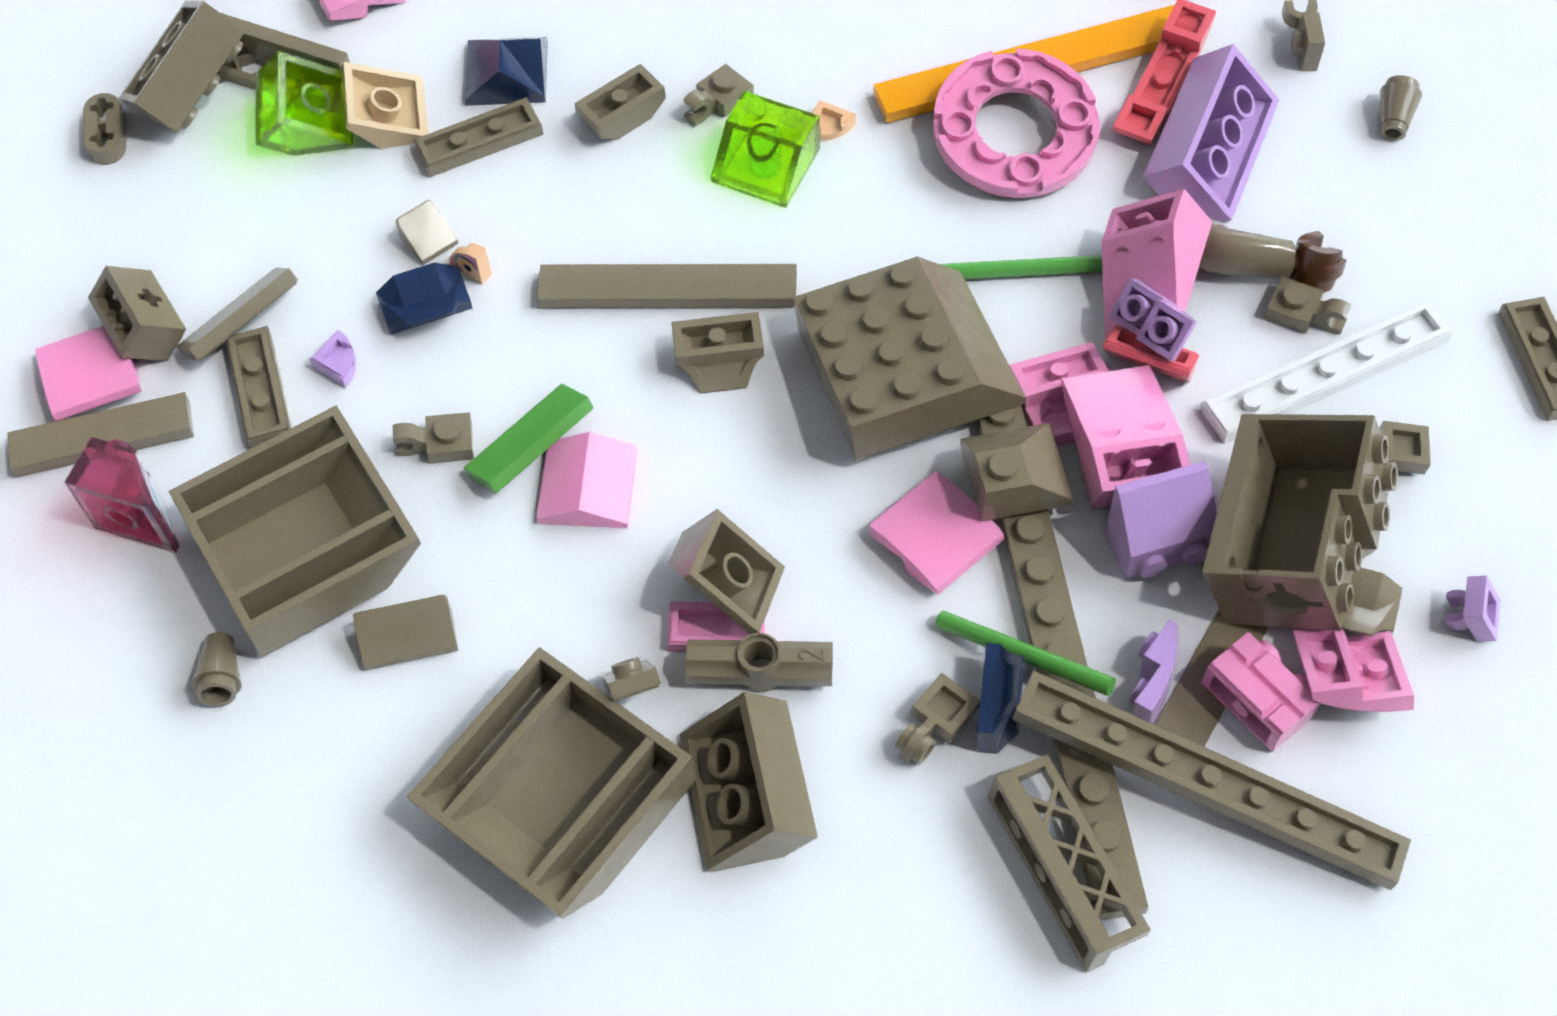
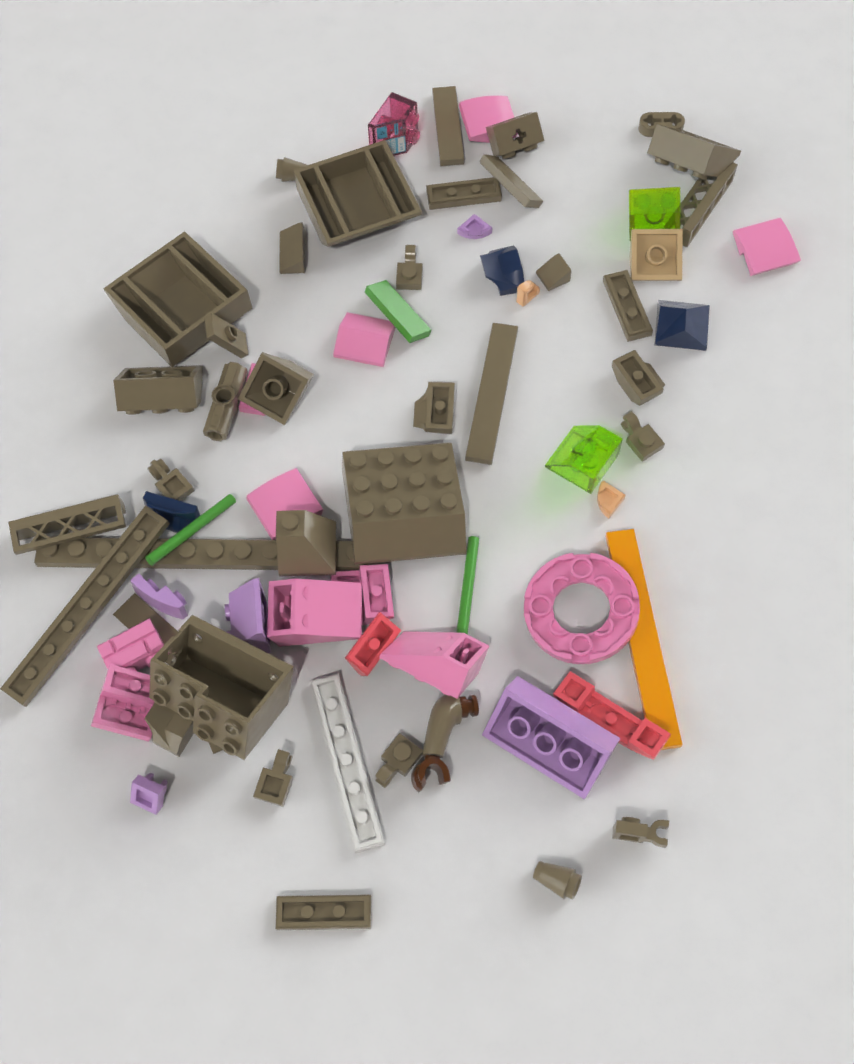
camera: 100 degrees right, 5 degrees up
(1153, 319) = (377, 643): lavender slope -> none

